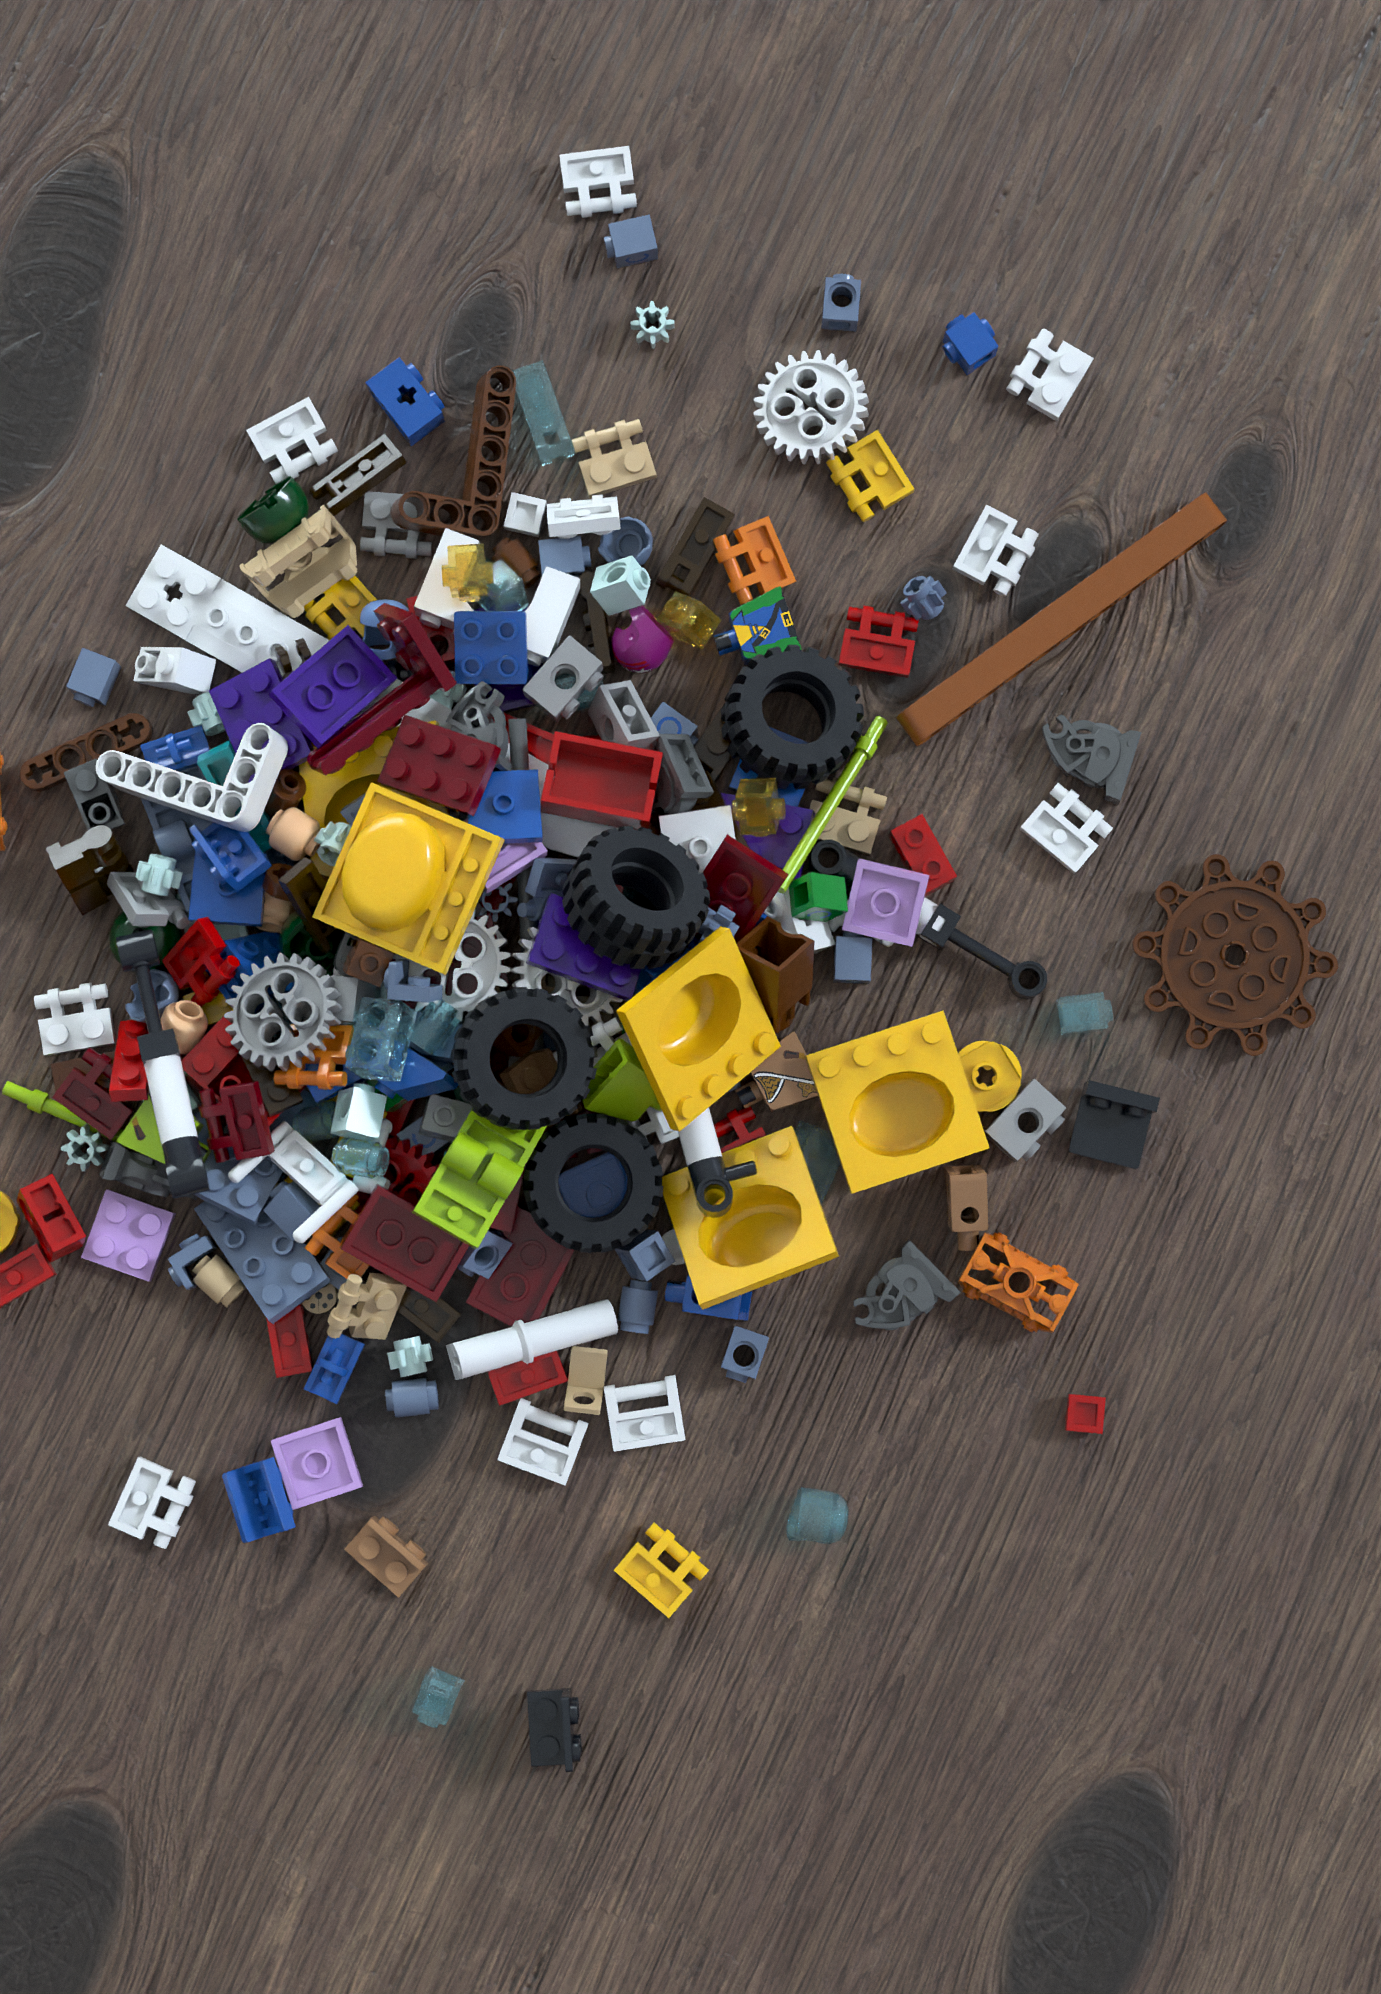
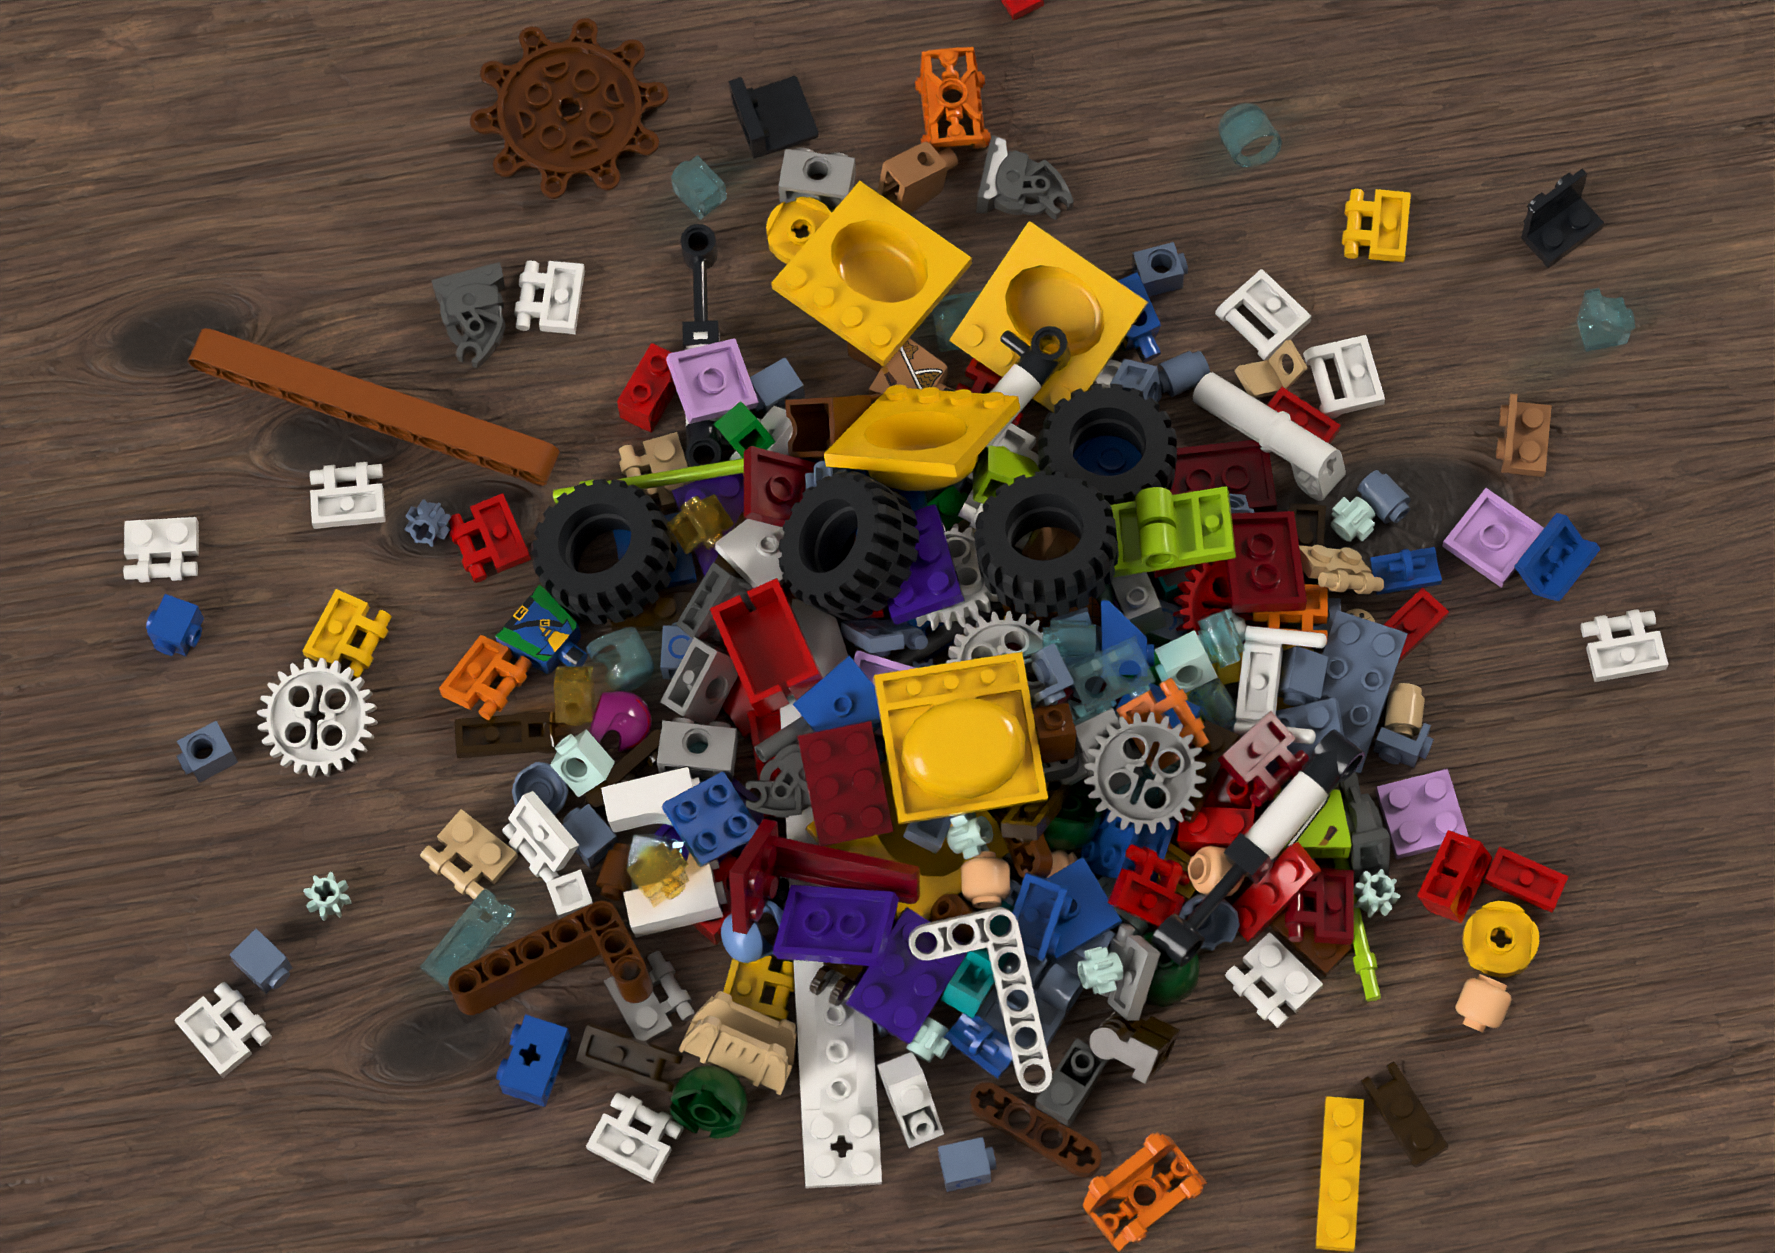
camera: 120 degrees left, 15 degrees down
(689, 684) = (628, 663): none -> clear light blue helmet

